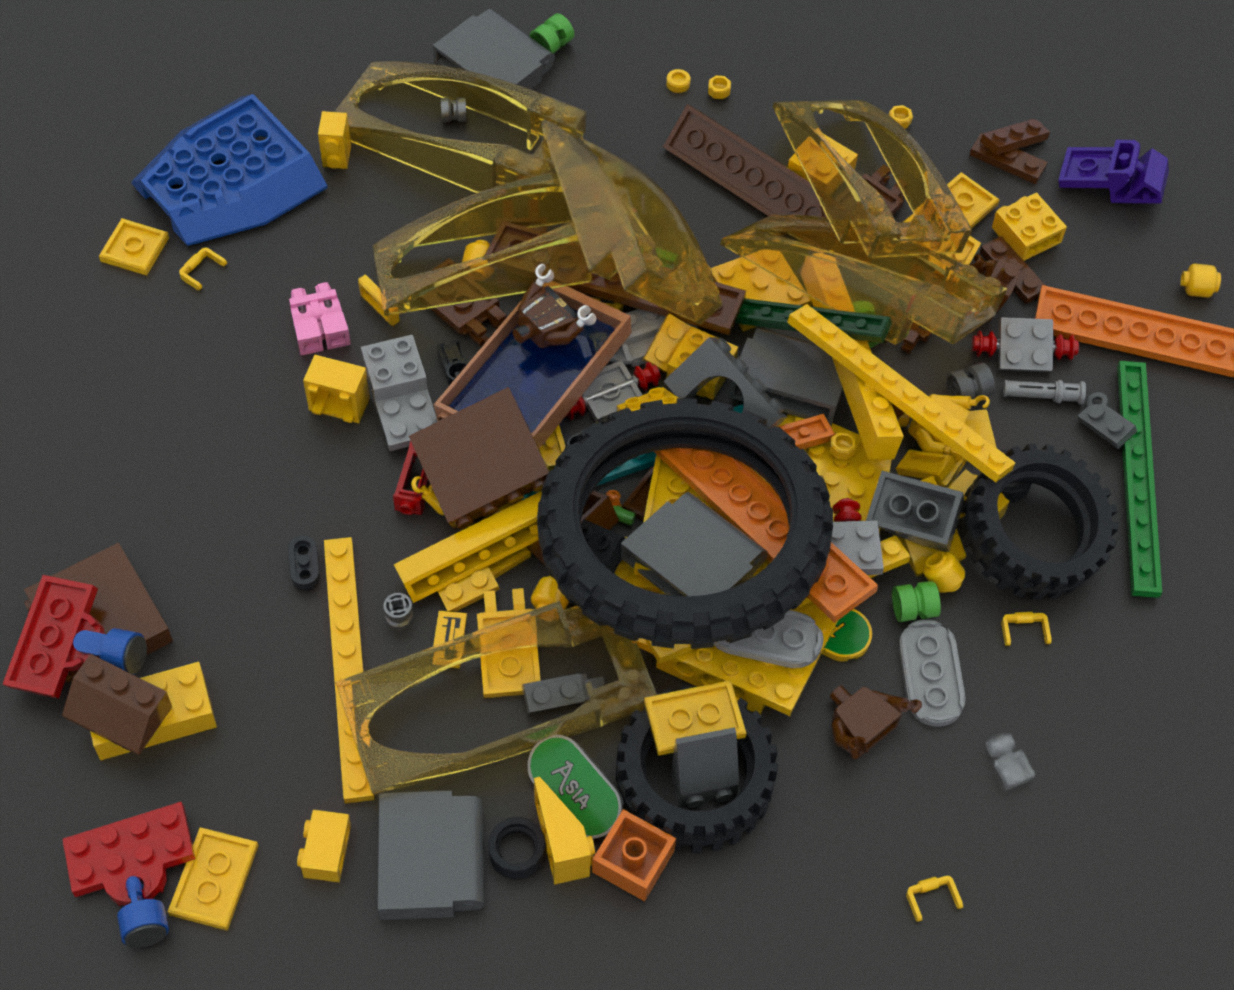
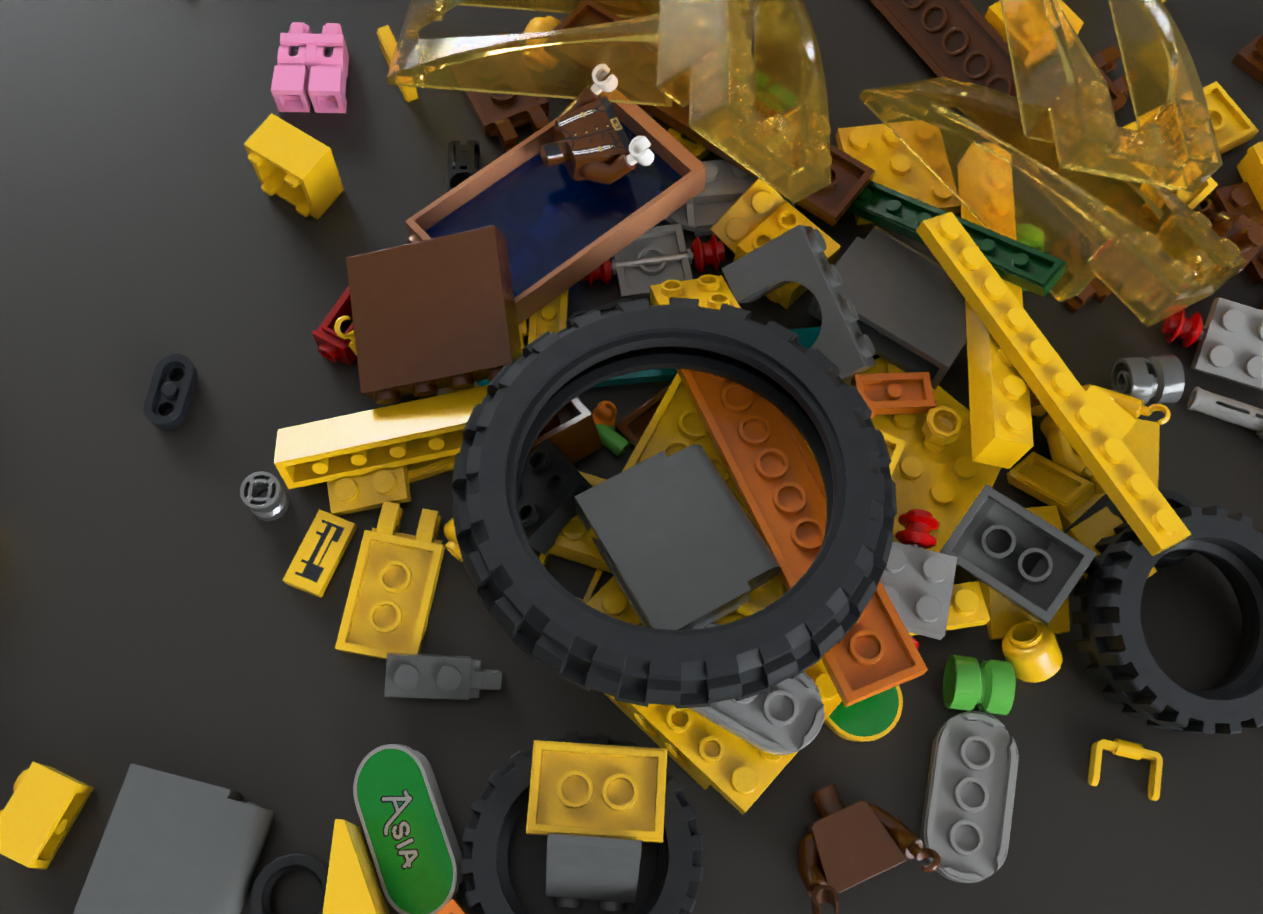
camera: 15 degrees right, 10 degrees up
(346, 657) = (171, 566): yellow plate -> none
(398, 389) = (374, 184): light grey piece -> none
(543, 627) = (157, 614): clear yellow windscreen -> none

